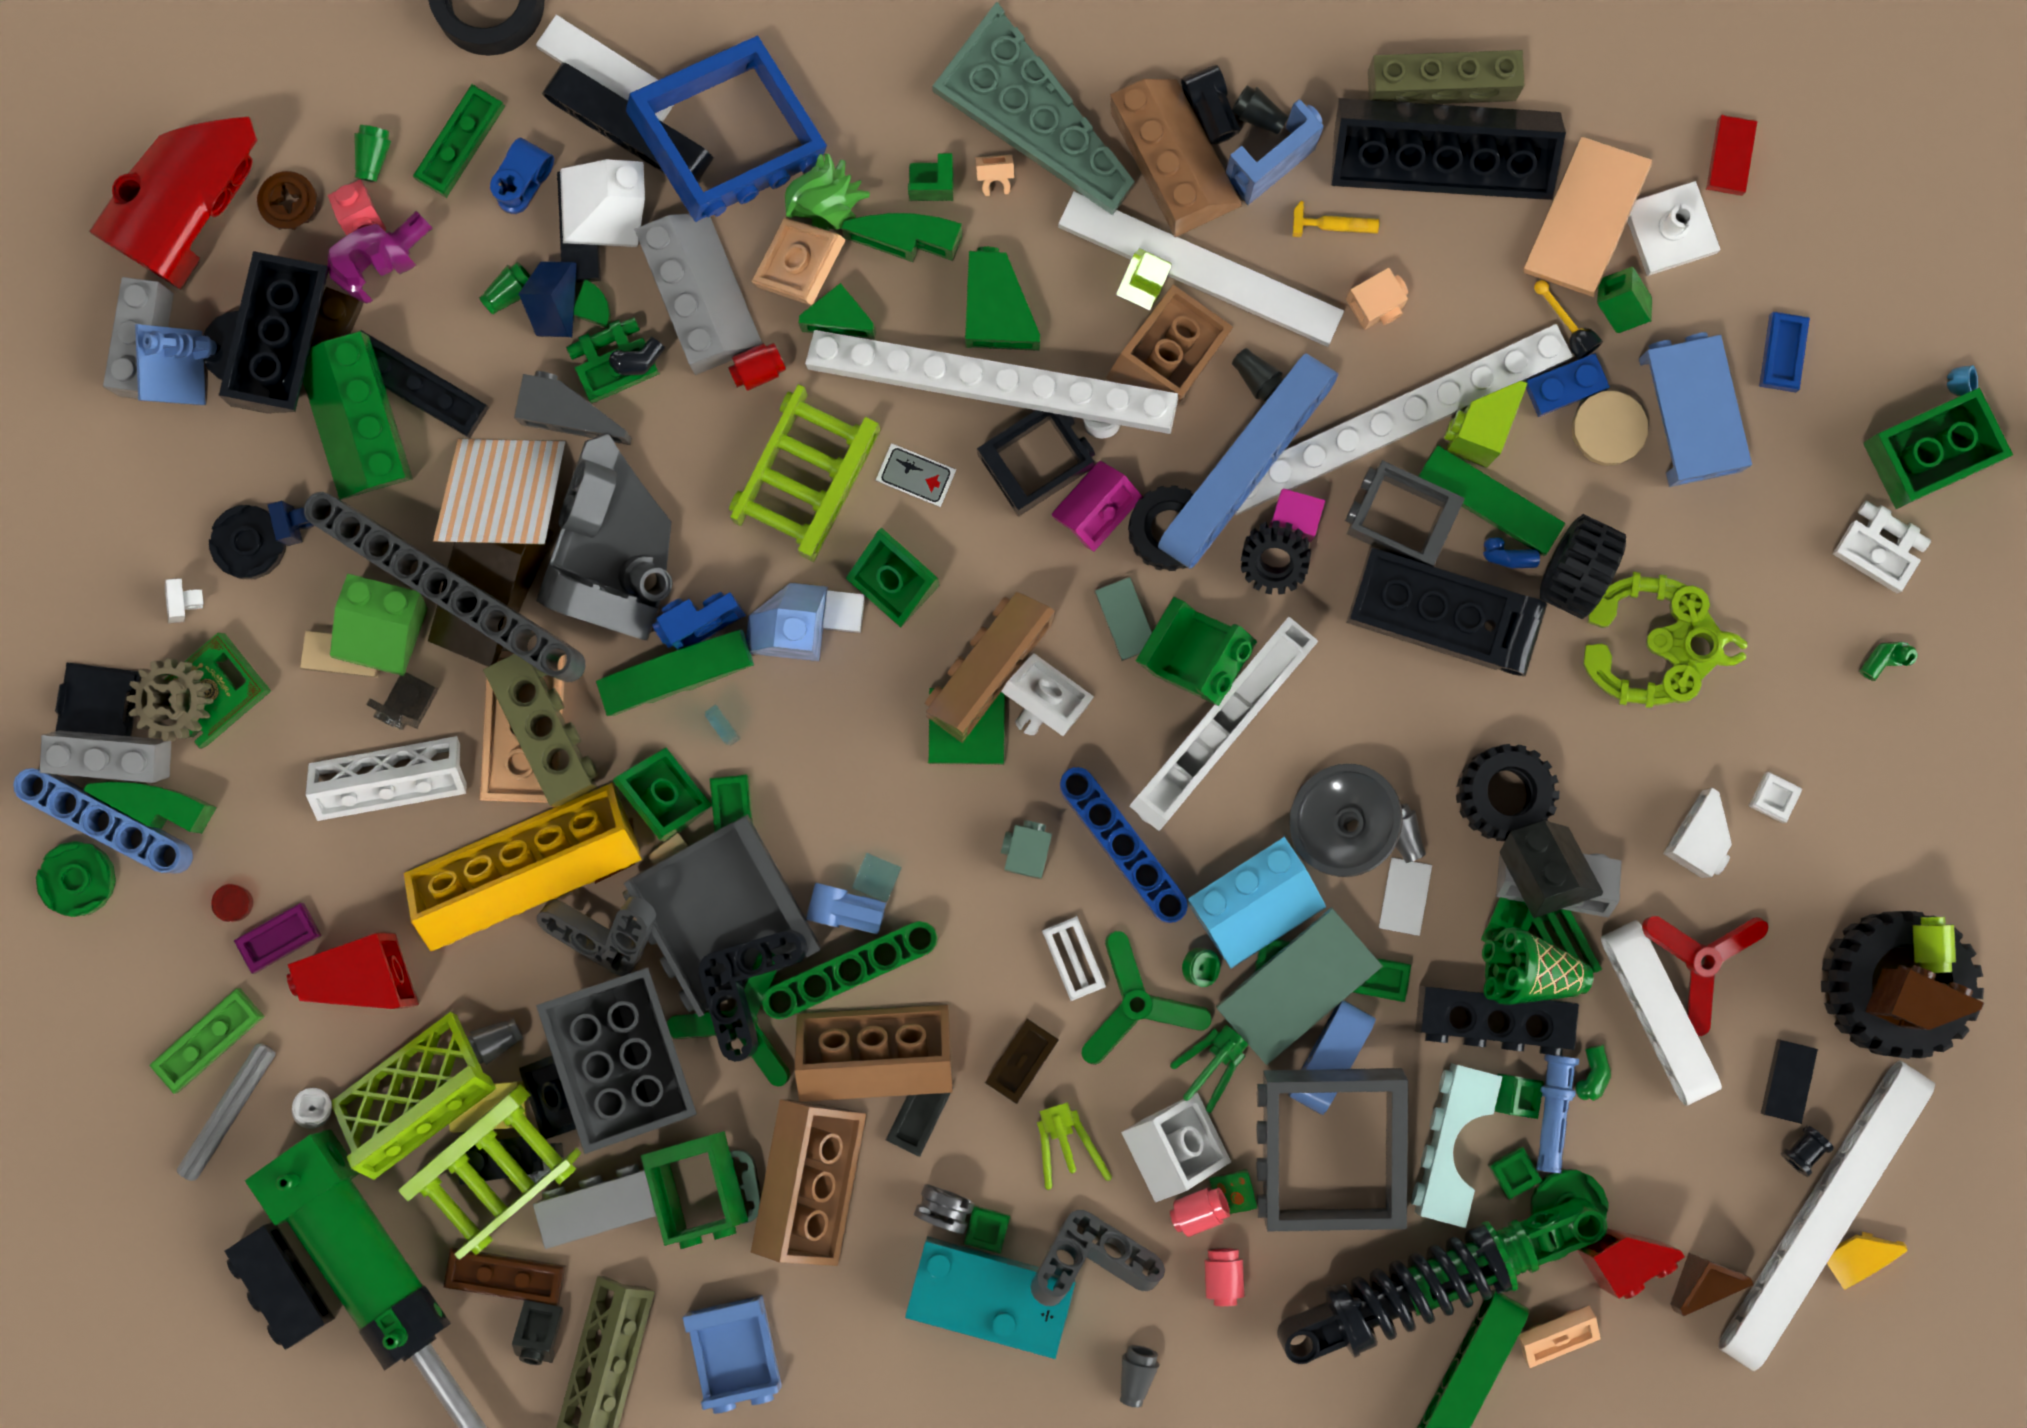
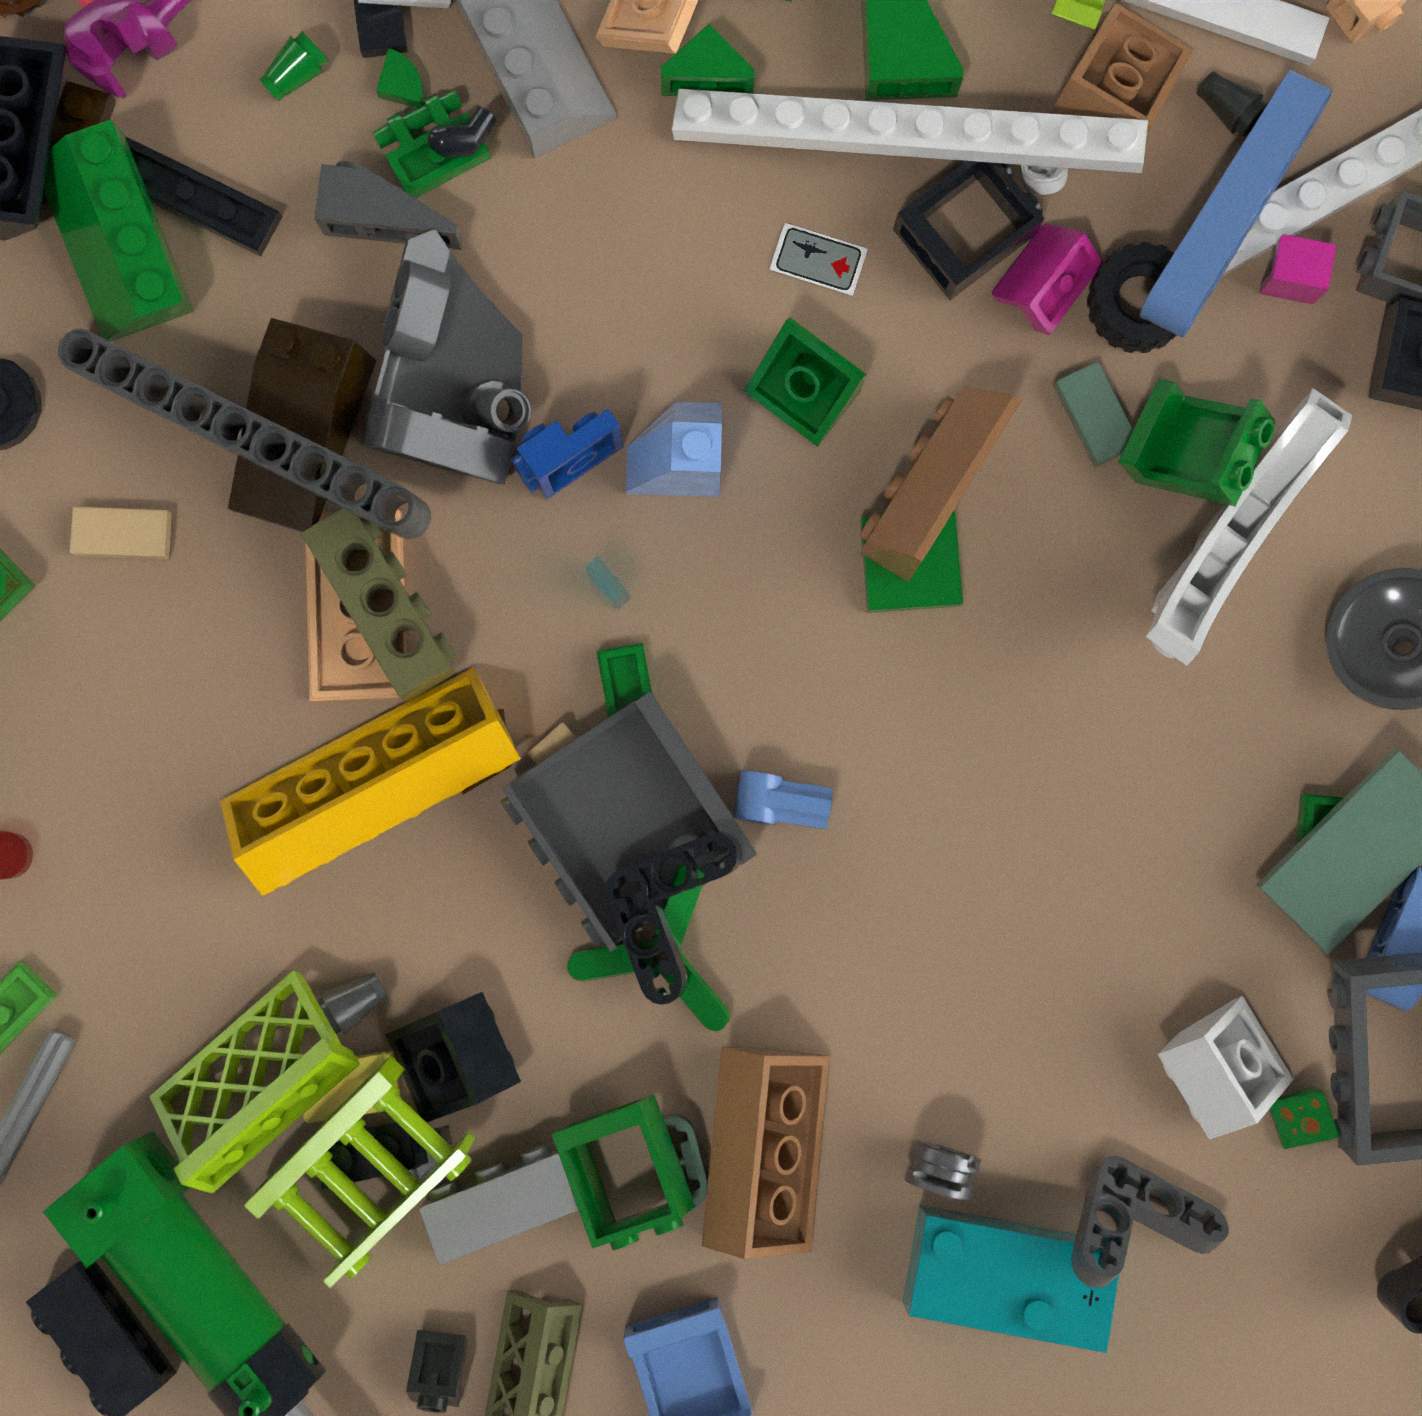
camera: 10 degrees left, 0 degrees up
(277, 938) = (66, 895): magenta tile -> none
(288, 522) = (41, 373): dark blue tile -> none
(311, 1108) = (126, 1107): white tile -> none
(355, 974) = (167, 932): red slope -> none
(376, 624) = (161, 489): bright green slope -> none
(385, 784) = (187, 691): white fence -> none
(405, 703) = (206, 587): clear smoke bracket -> none
(500, 491) = (304, 311): sticker -> none
(505, 1277) = (390, 1302): reddish brown tile -> none
(550, 299) = (348, 74): dark blue slope -> none
(604, 944) = (437, 849): dark grey beam -> none
(616, 1060) = (511, 1016): dark grey slope -> none
(663, 794) = (540, 674): green slope -> none
(675, 673) = (542, 522): green slope -> none
(756, 366) = (611, 137): red brick -> none
(825, 503) = (728, 256): lime fence -> none
(831, 970) = (820, 875): green beam -> none
(843, 611) = (745, 432): white tile -> none
(873, 1053) = (835, 979): medium nougat slope -> none
(876, 877) = (816, 758): clear light blue tile -> none
(917, 1121) = (896, 1050): pearl dark grey tile -> none
(987, 1229) = (996, 1191): green tile -> none
(1021, 1061) = (1021, 973): dark brown plate -> none
(1026, 849) = (1003, 708): sand green brick -> none
(1045, 697) = (1011, 516): white tile -> none
(1059, 1122) = (1074, 1048): lime plant -> none
(1086, 988) = (1053, 845): white tile -> none
(1119, 826) = (1145, 698): blue beam -> none
(1137, 1374) = (1205, 1360): dark grey cone -> none
(1154, 1007) = (1177, 893): green piece -> none
(1200, 1211) = (1265, 1146): coral brick -> none
(1201, 967) = (1234, 838): green tile -> none
(1224, 1276) = (1303, 1226): coral brick -> none
(1226, 1048) = (1278, 939): green plant -> none
(1257, 902) = (1299, 751): medium azure slope -> none
(1271, 576) = (1285, 347): black tyre -> none

